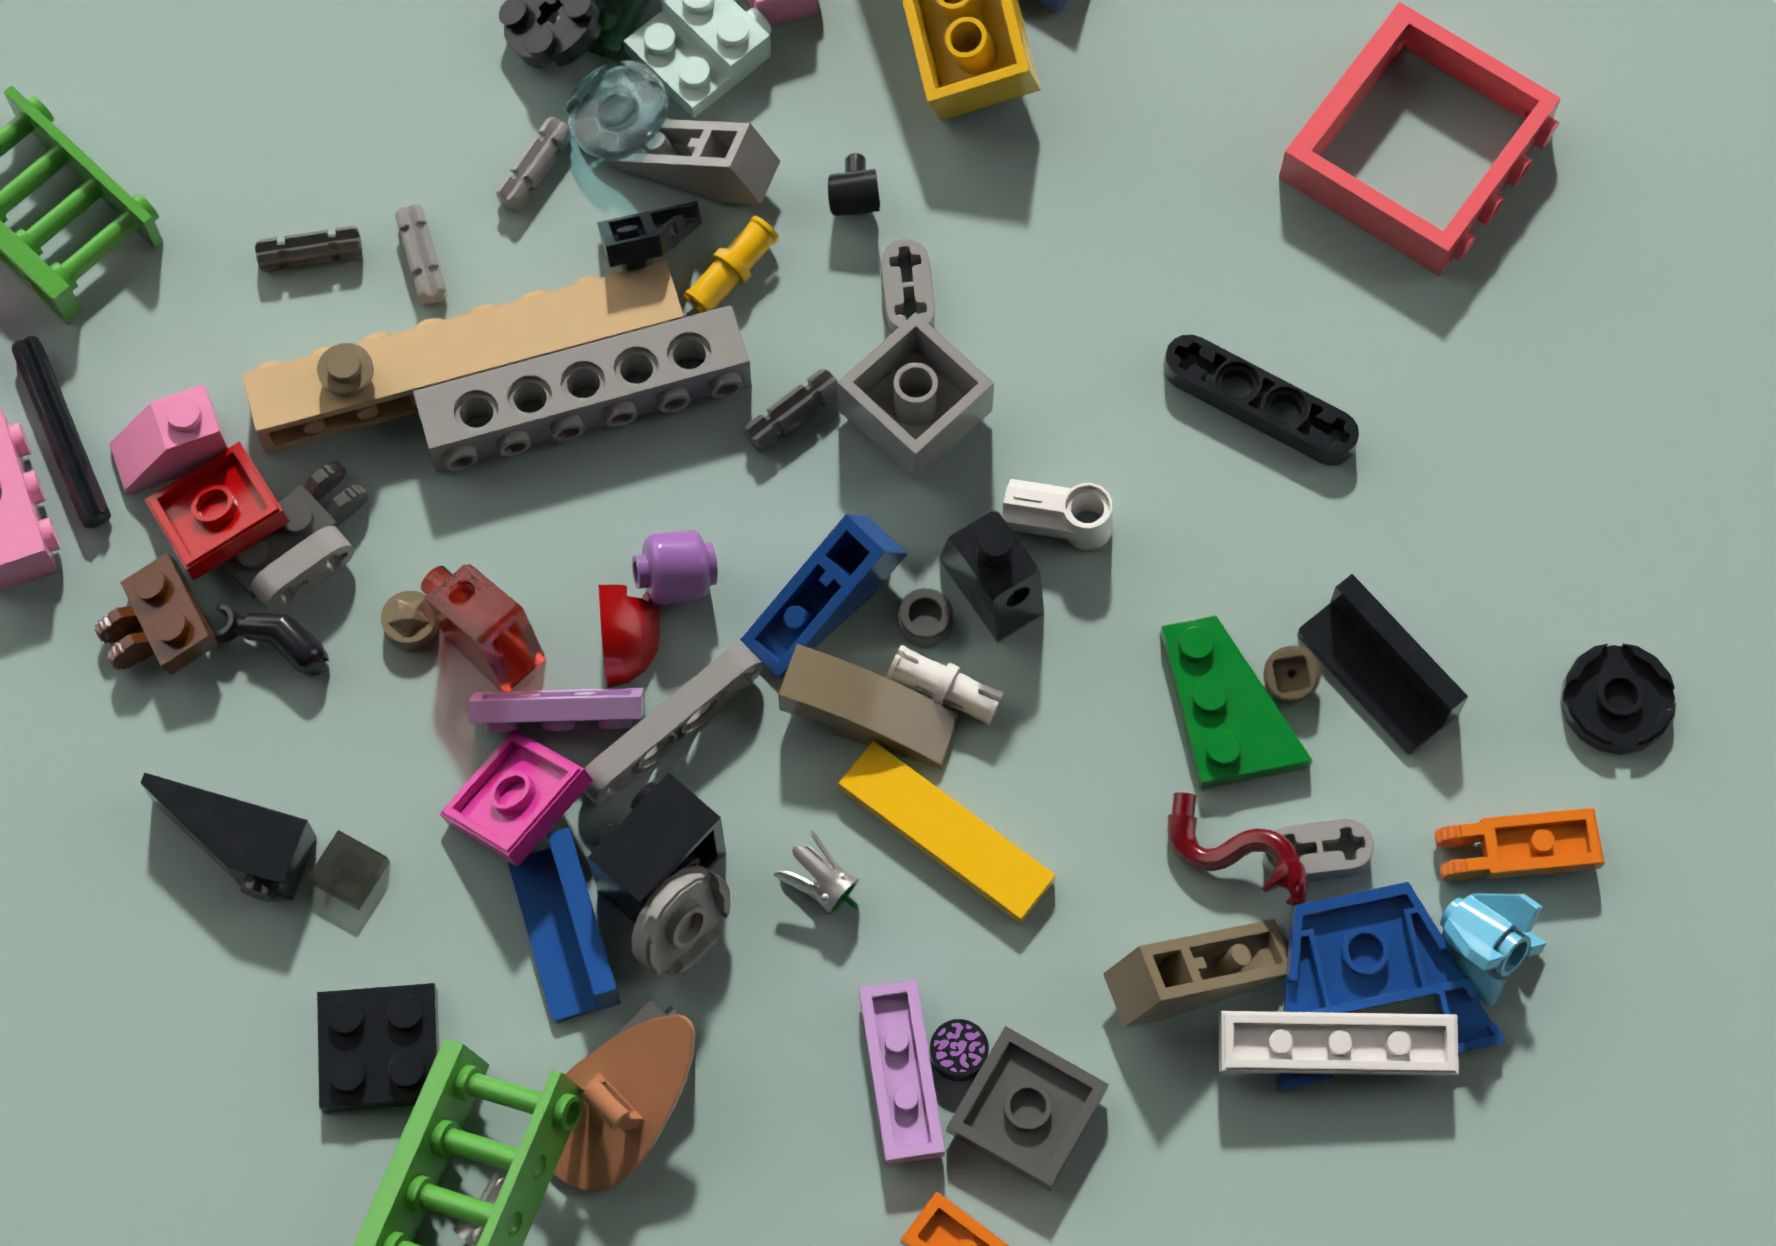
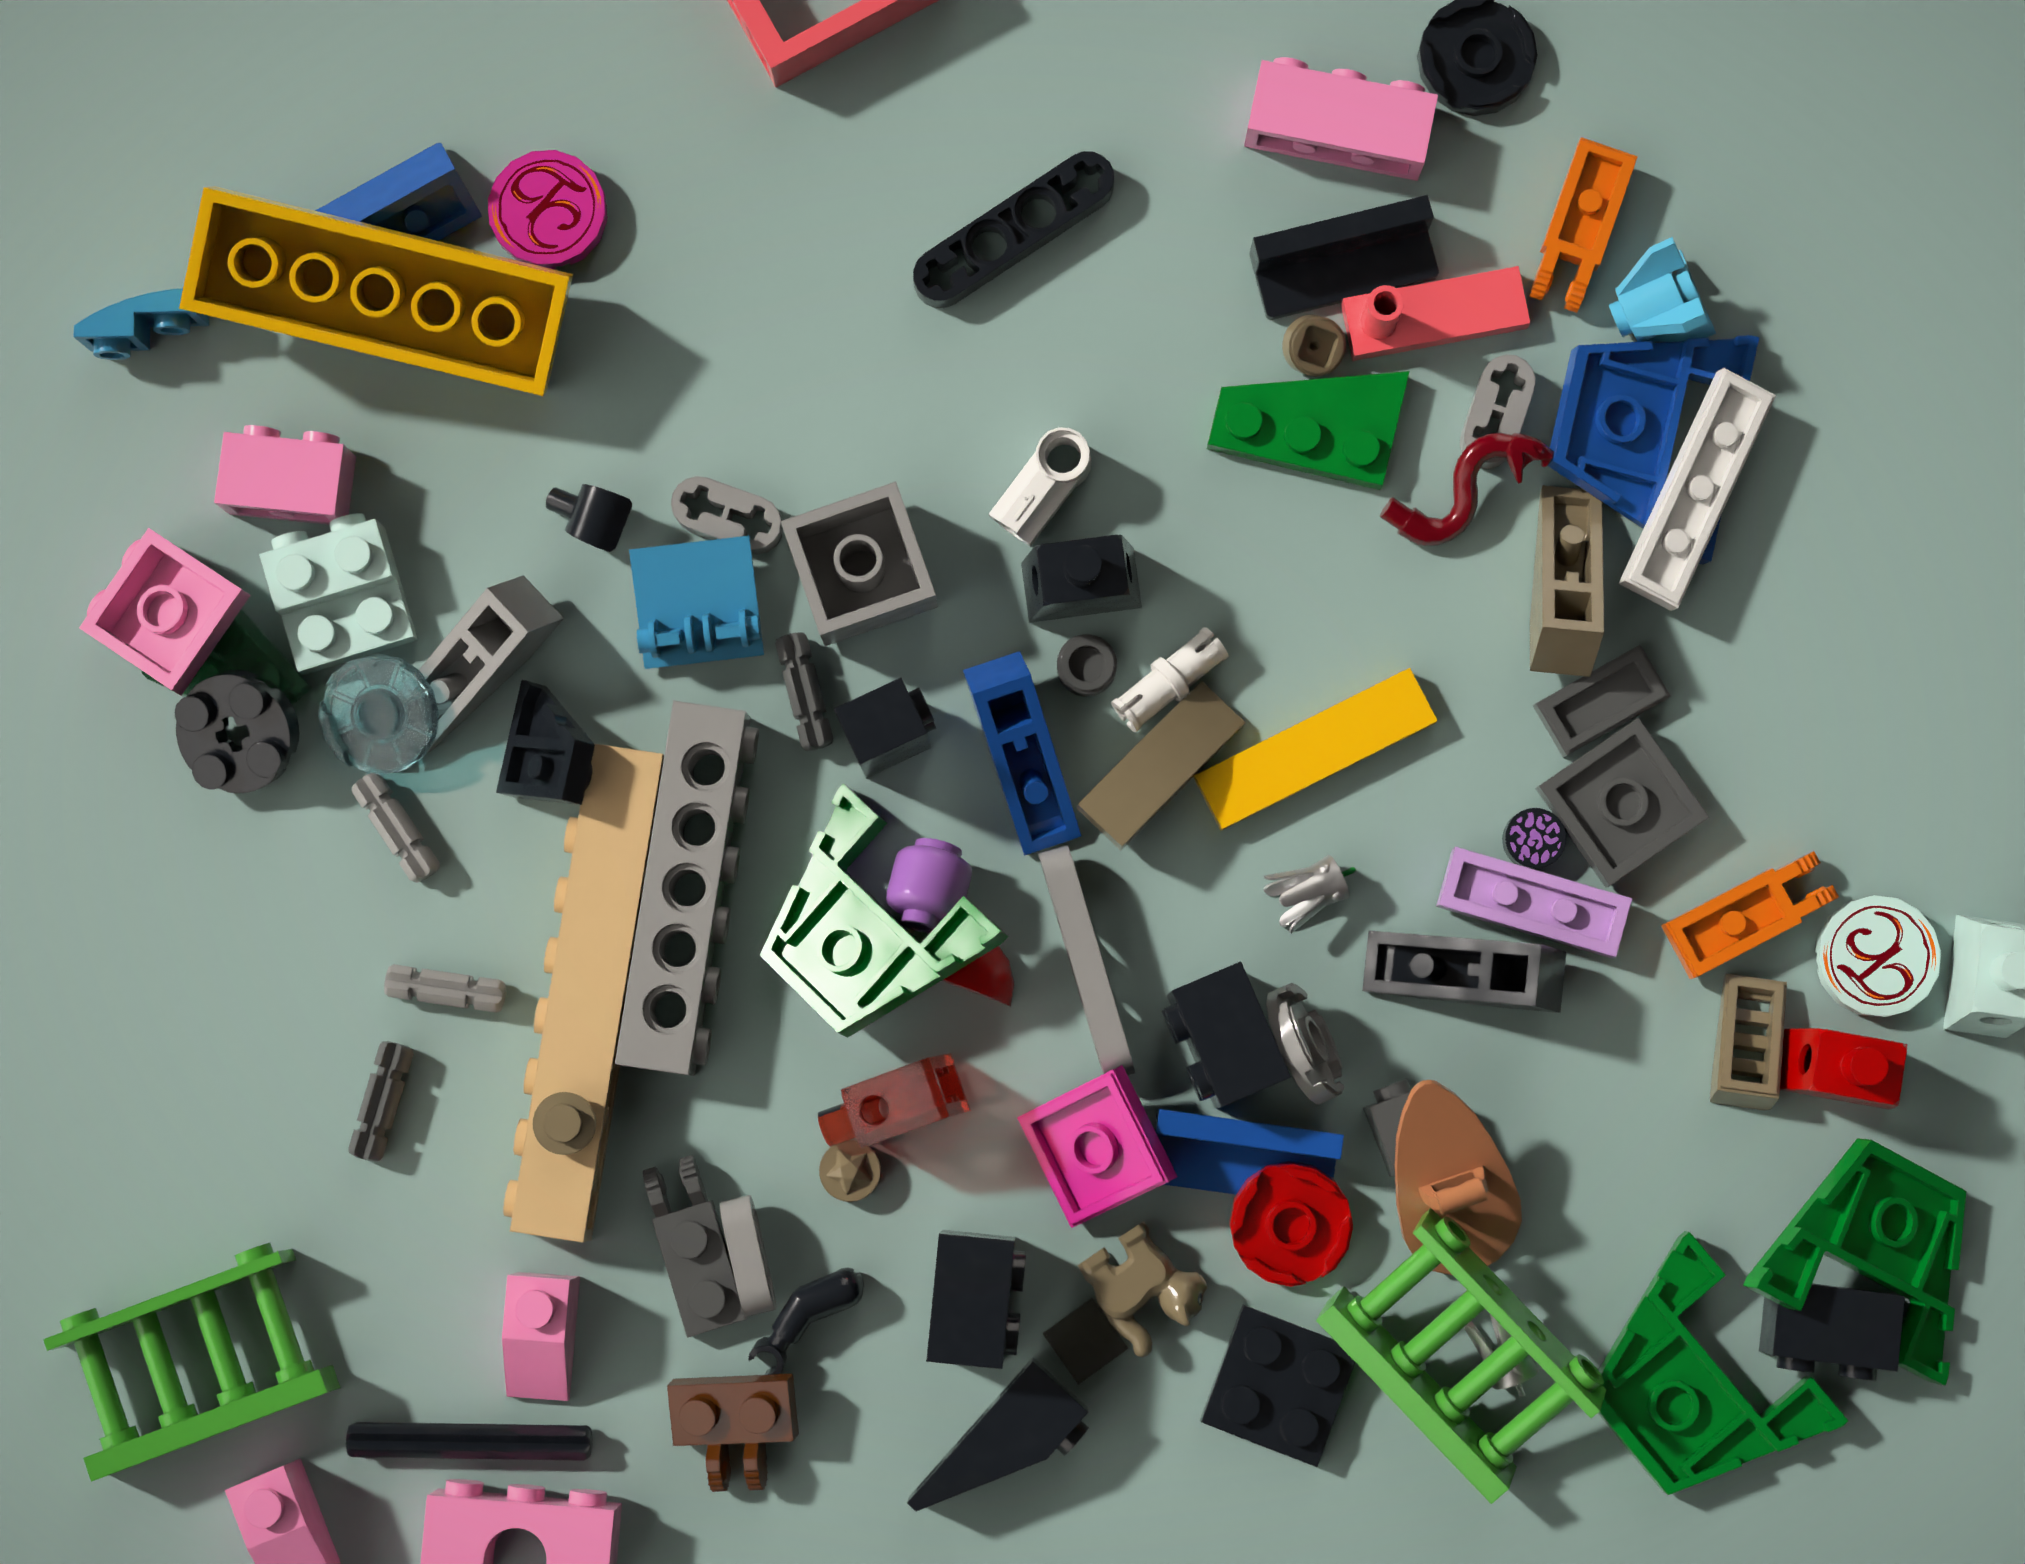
camera: 60 degrees left, 15 degrees up
(216, 510) = (643, 1317): red tile -> none
(339, 748) = (972, 1299): none -> black brick
(415, 883) = (1129, 1286): none -> dark tan animal
(523, 992) = (1291, 1223): none -> red tile
(556, 708) = (1018, 1065): lavender plate -> none
(594, 525) = (849, 950): none -> wing
(731, 265) = (616, 679): yellow pin -> none
(787, 470) = (886, 726): none -> black brick
(813, 1041) = (1465, 970): none -> black slope
(822, 296) = (696, 602): none -> dark azure hinge
(1085, 56) = (547, 209): none -> dark pink tile
(1111, 1054) = (1602, 701): none -> dark grey tile
(1375, 761) = (1435, 313): none -> coral piece
(1497, 607) = (1341, 118): none -> bright pink brick

